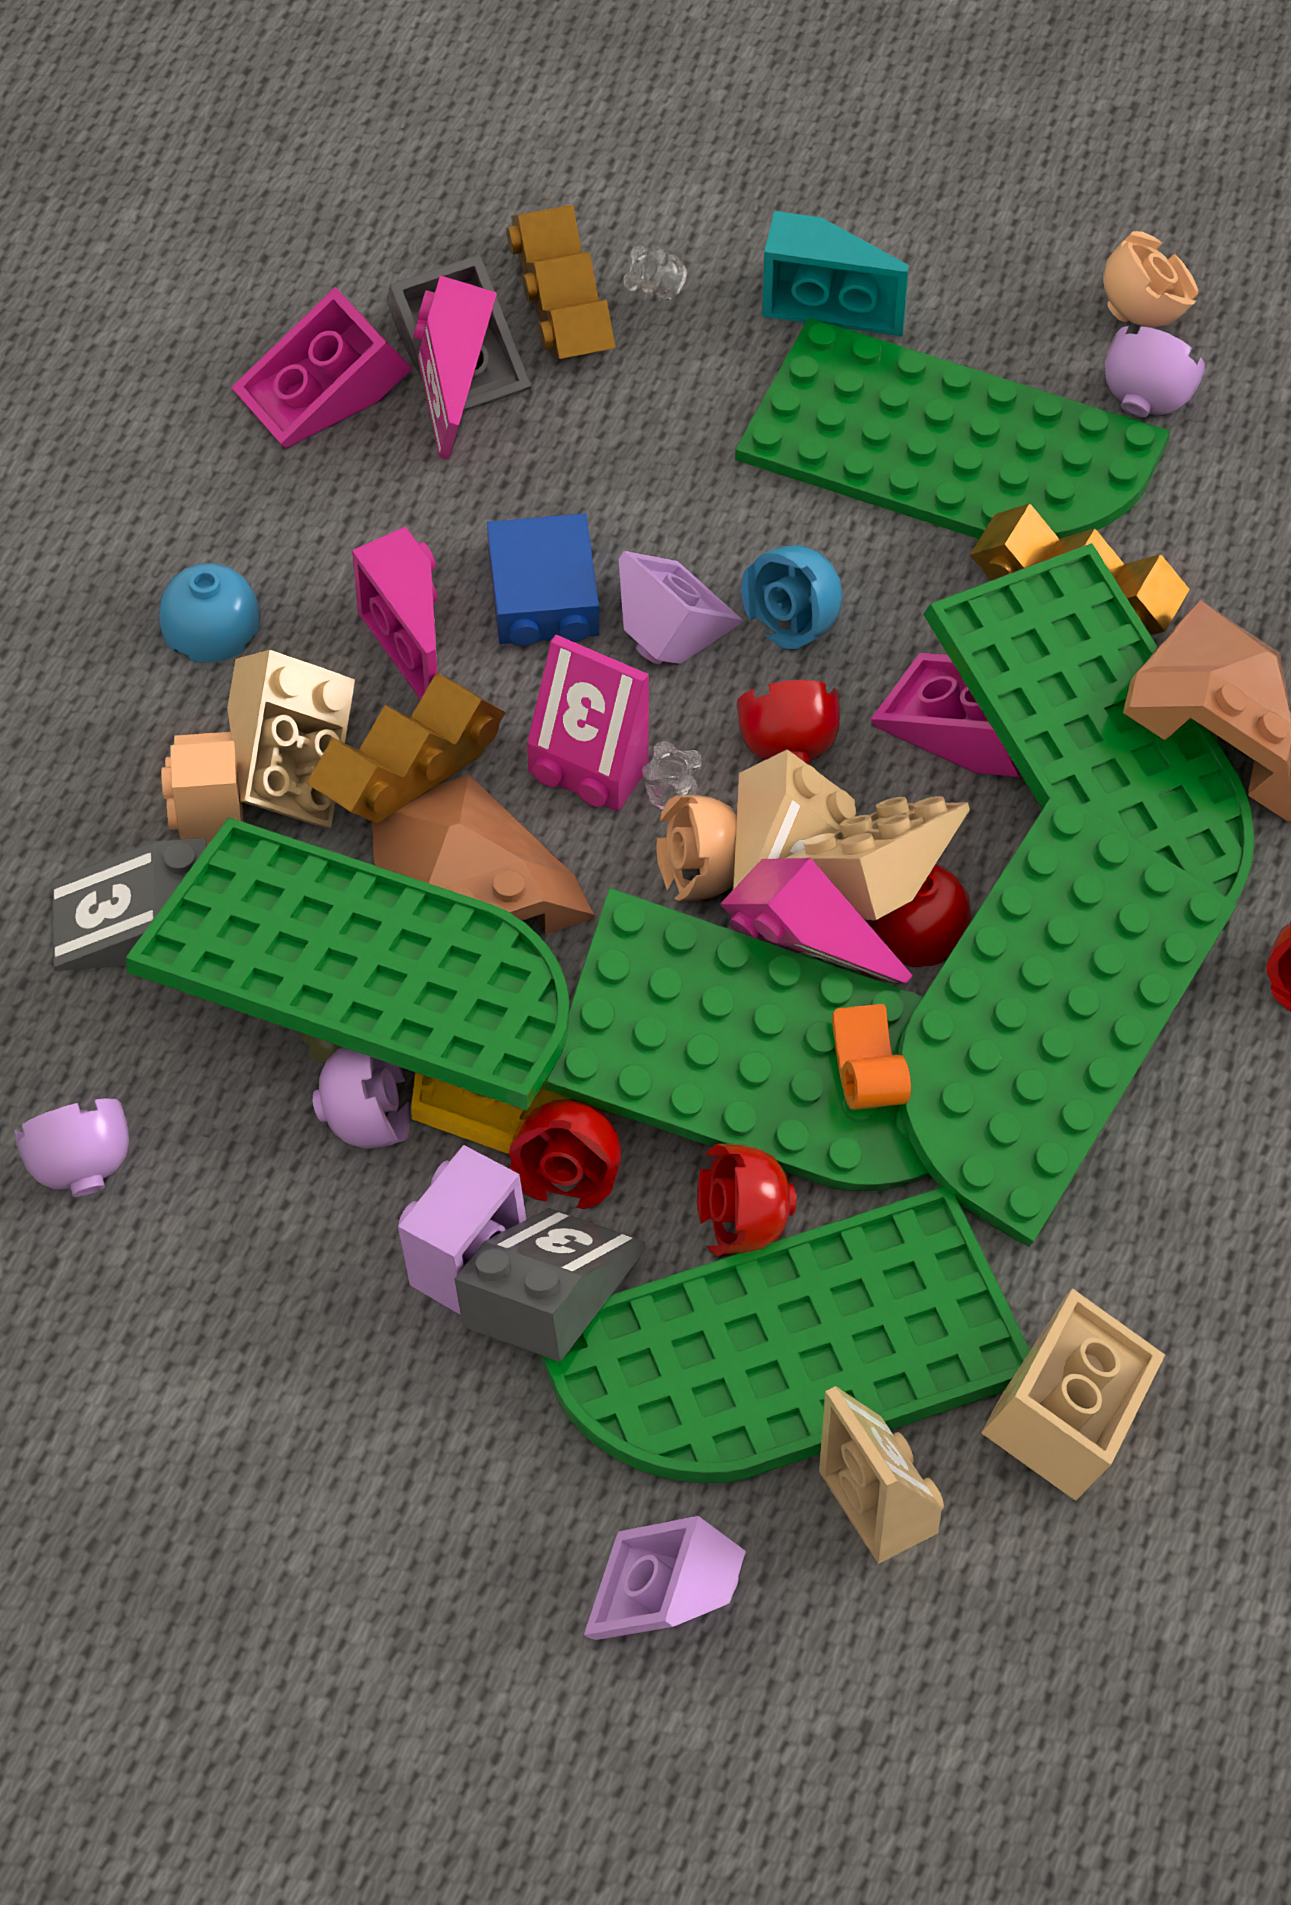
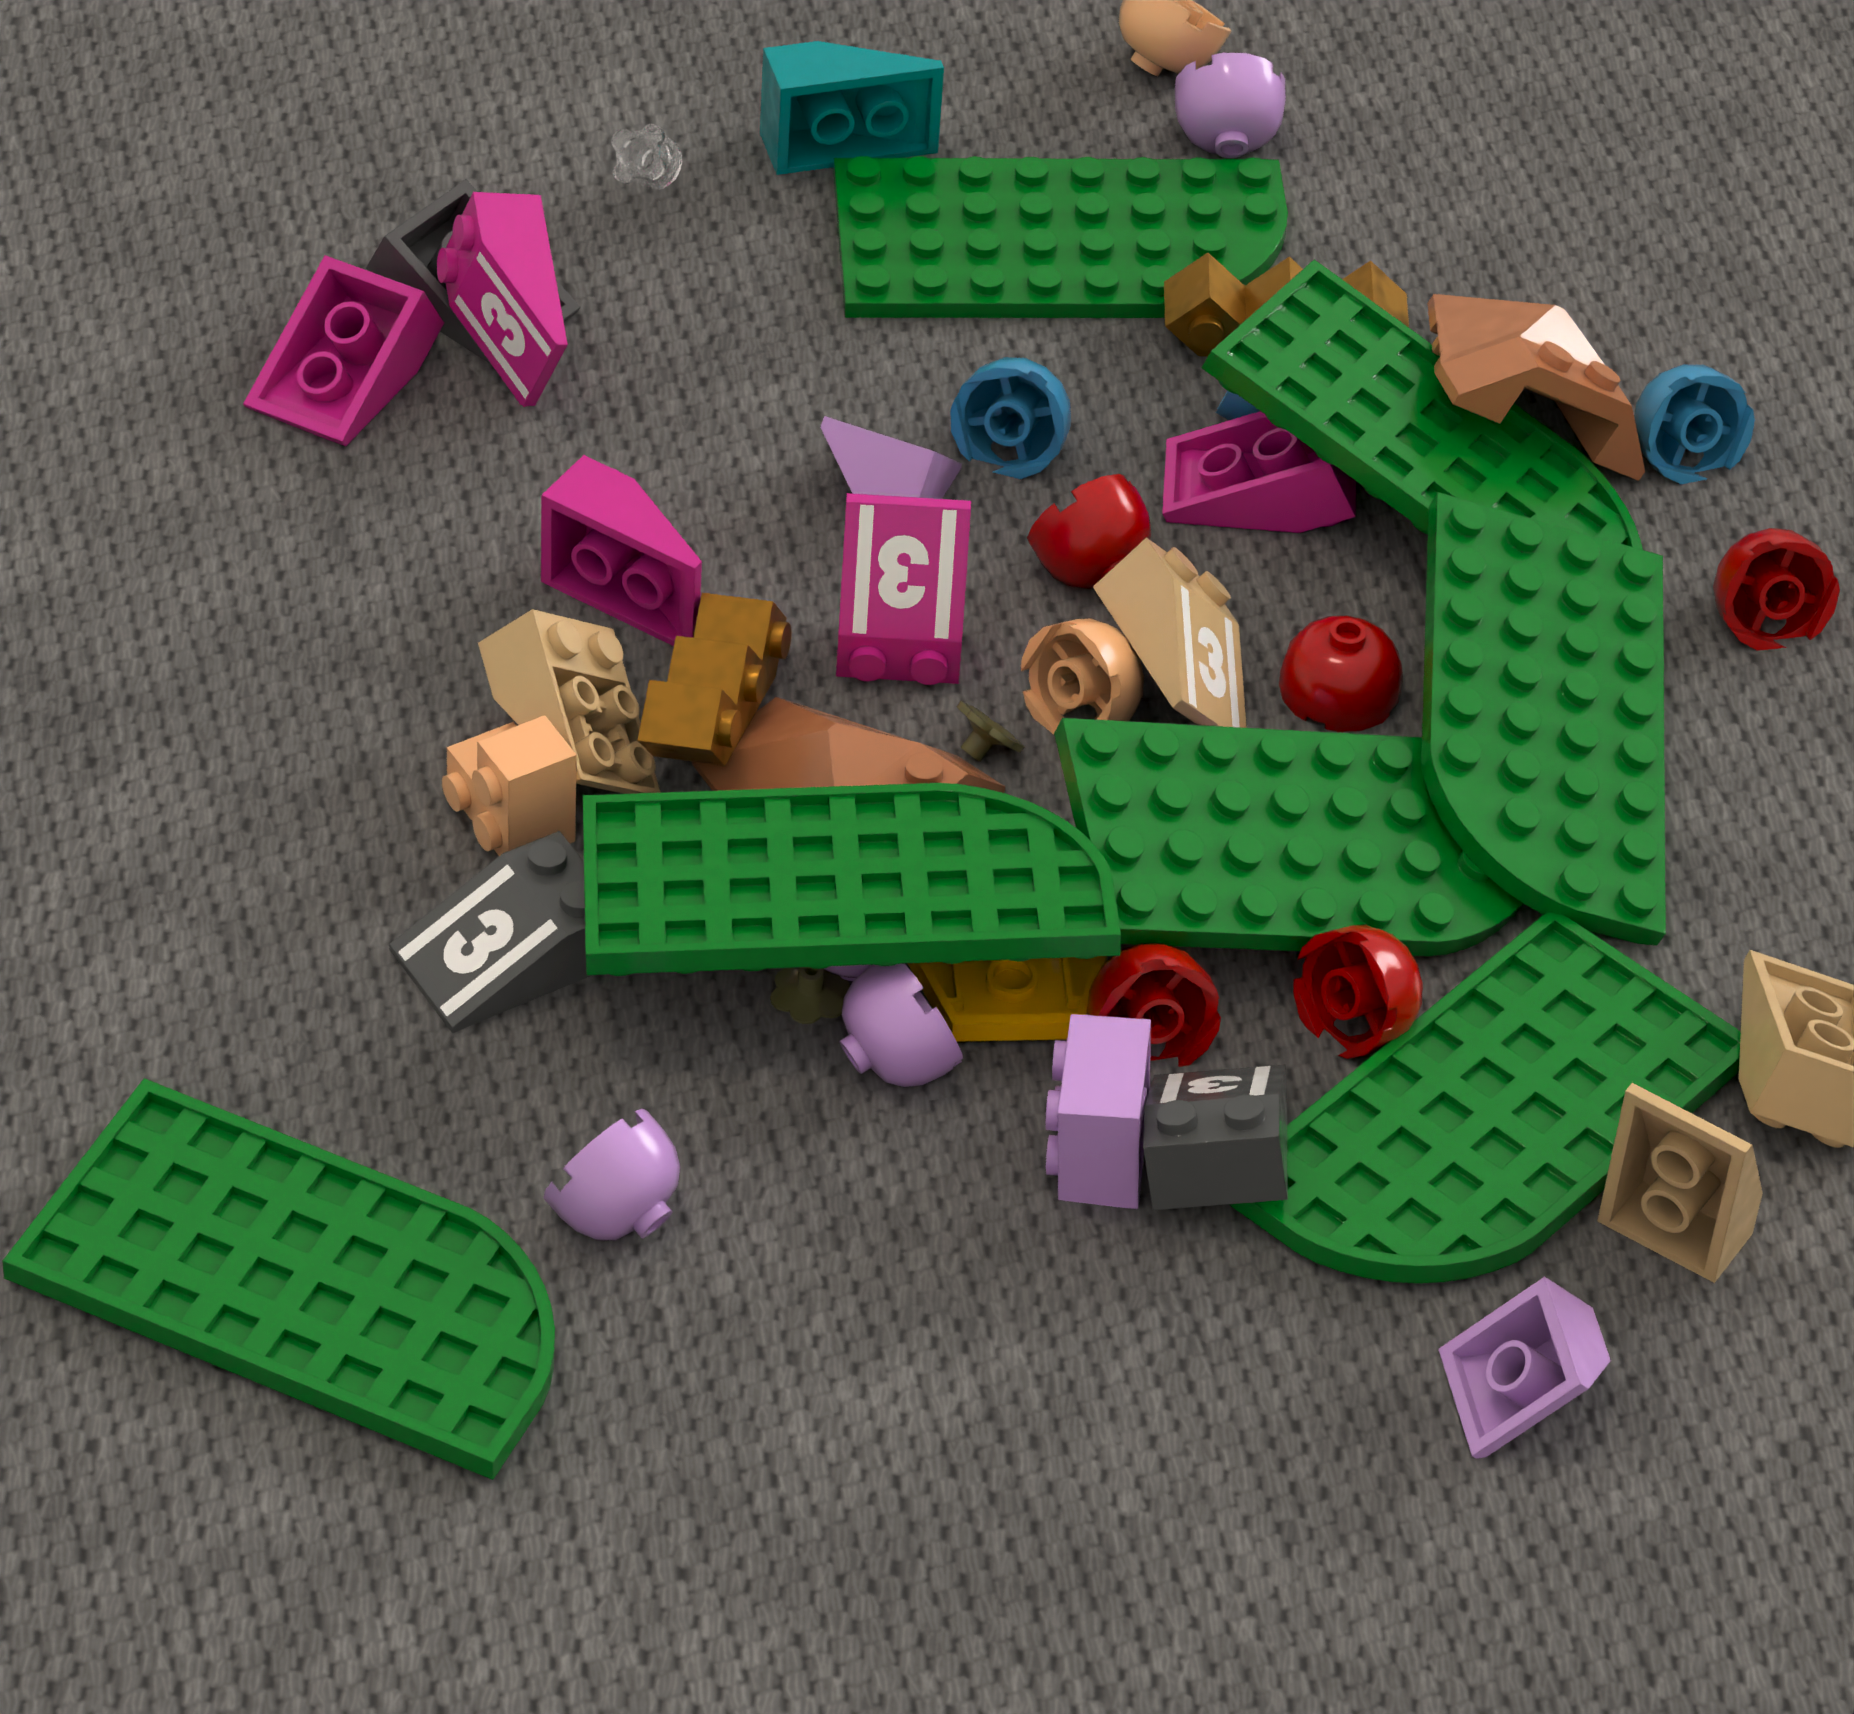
camera: 30 degrees left, 10 degrees down
(208, 613) = (382, 625): dark azure cylinder -> none
(543, 579) = (731, 483): blue brick -> none
(560, 282) = (580, 223): pearl gold brick -> none
(604, 862) = (985, 733): none -> olive plant
(670, 773) = (1003, 624): clear brick -> none
(803, 911) = (1274, 679): dark pink slope -> none
(865, 1059) = (1415, 821): orange panel -> none
(886, 855) = (1287, 624): tan slope -> none

